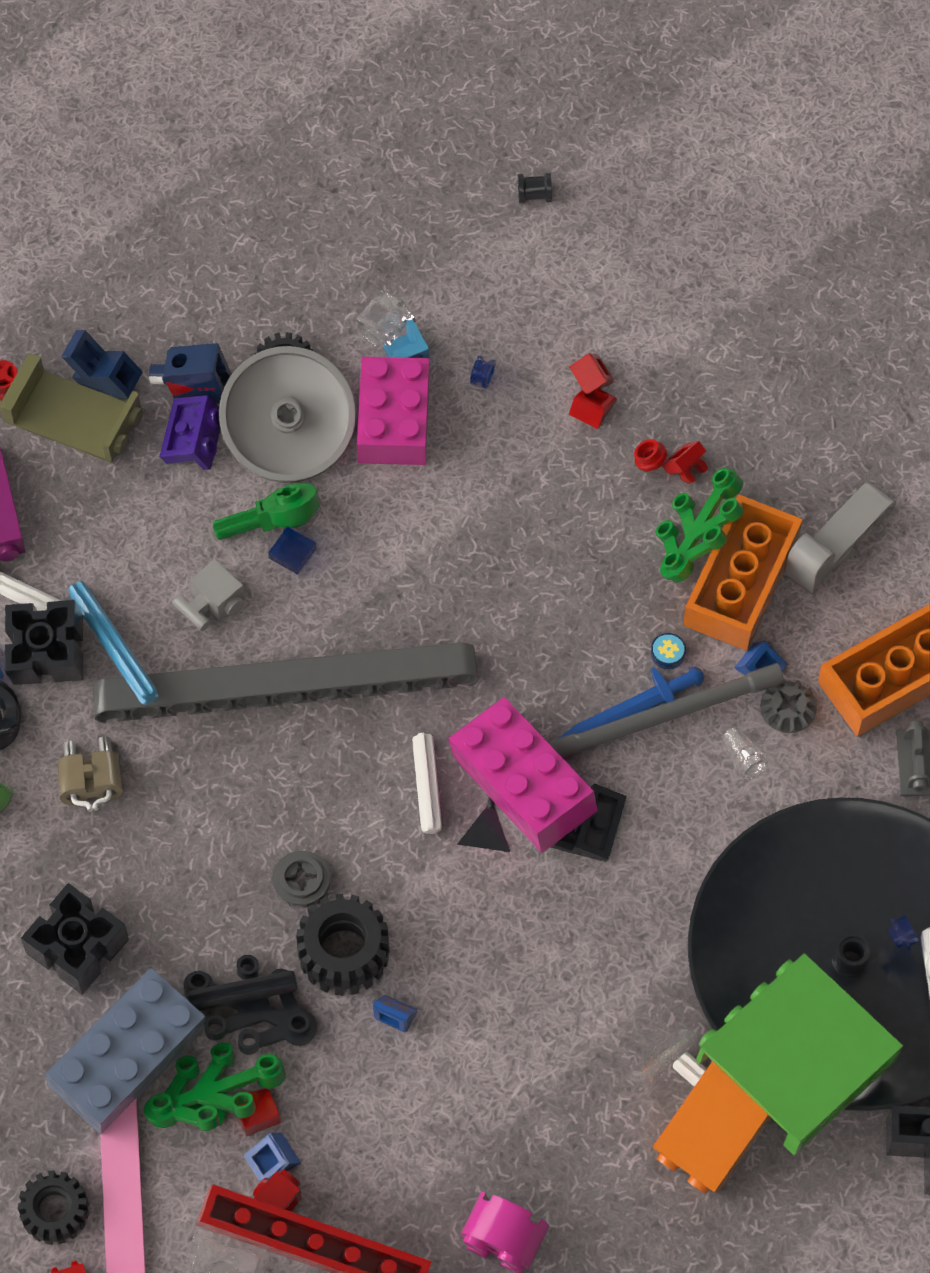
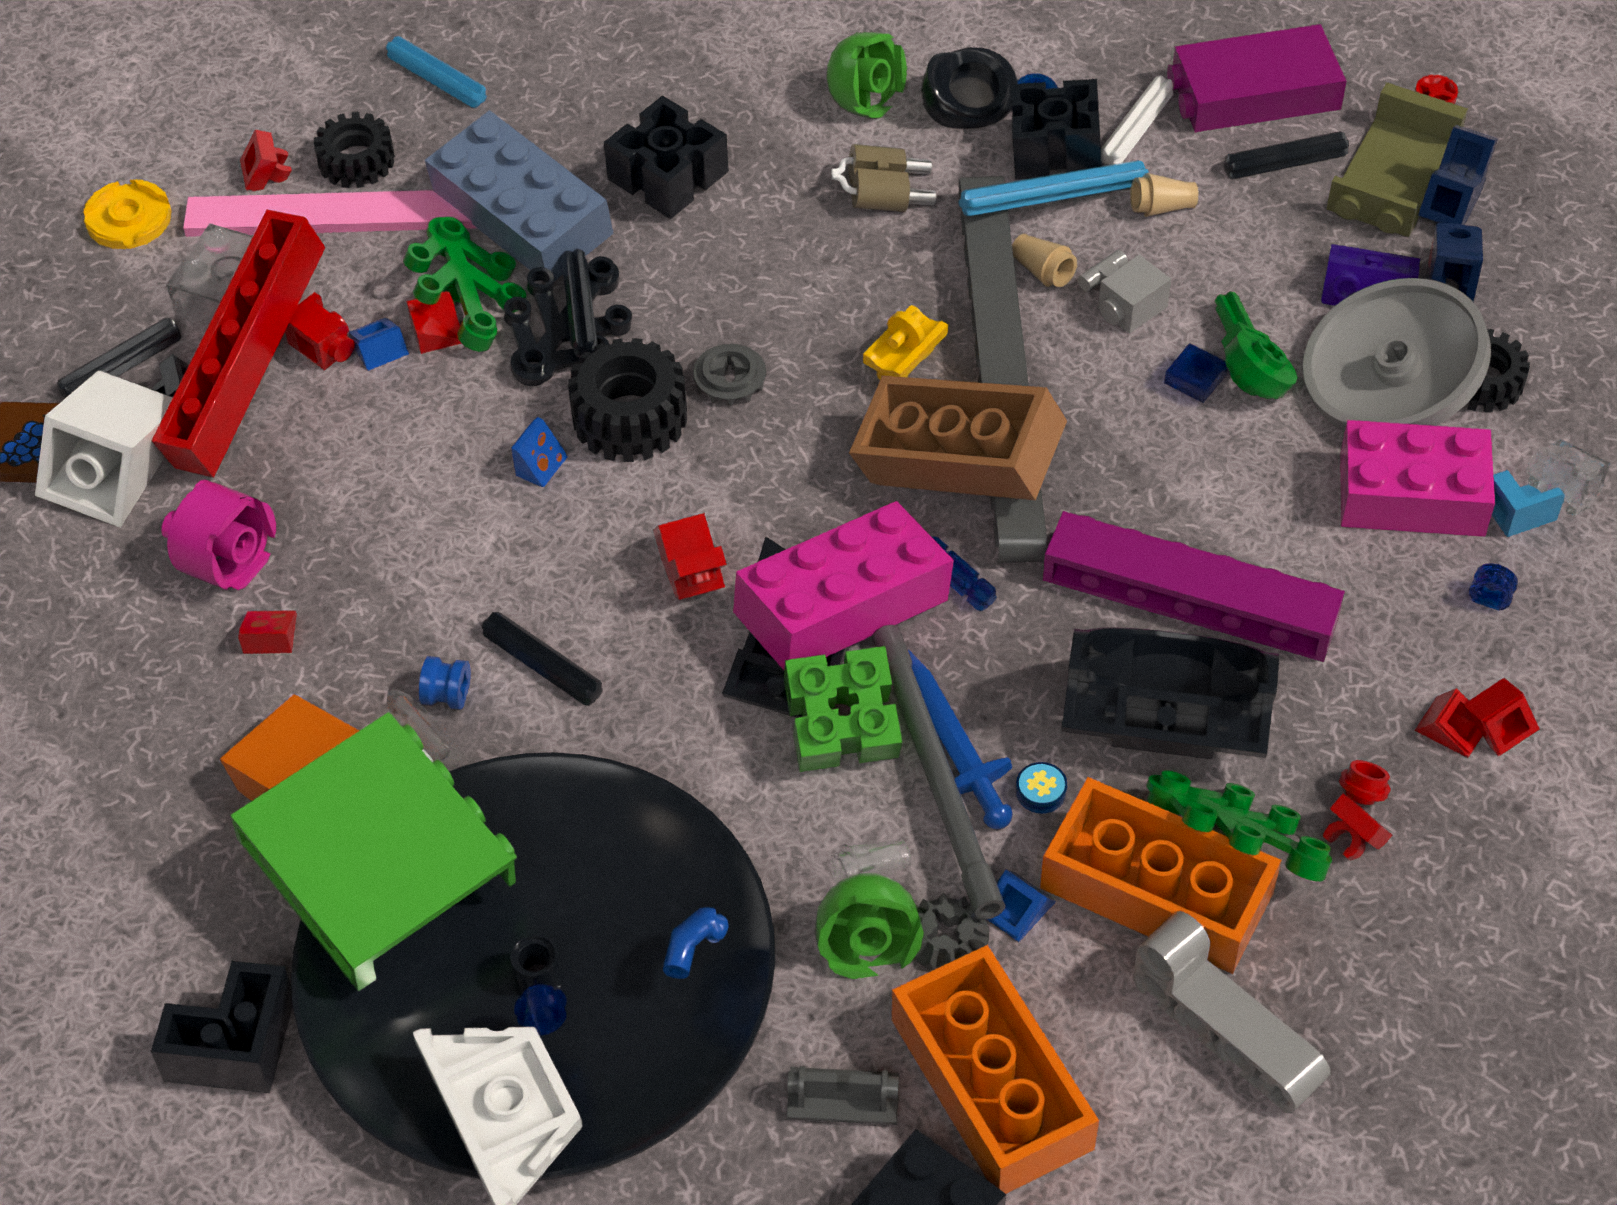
camera: 95 degrees right, 10 degrees down
(57, 486) = (1286, 155): none -> black axle
(106, 573) = (1161, 194): none -> tan cone
(178, 653) = (1045, 260): none -> tan cone
(278, 746) = (905, 343): none -> yellow hips
(393, 694) = (959, 436): none -> medium nougat brick
(427, 783) = (848, 501): white axle -> none
(495, 554) = (1193, 585): none -> magenta brick
(496, 886) = (690, 556): none -> red brick
(505, 690) = (965, 581): none -> clear blue axle
(574, 1192) = (267, 632): none -> red slope
(585, 988) = (542, 658): none -> black axle
(602, 572) = (1170, 692): none -> black piece
(619, 1049) = (444, 682): none -> blue wheel
(630, 769) = (861, 684): none -> bright green brick
(795, 747) = (867, 918): none -> bright green cylinder
(833, 845) = (687, 935): none -> blue arm

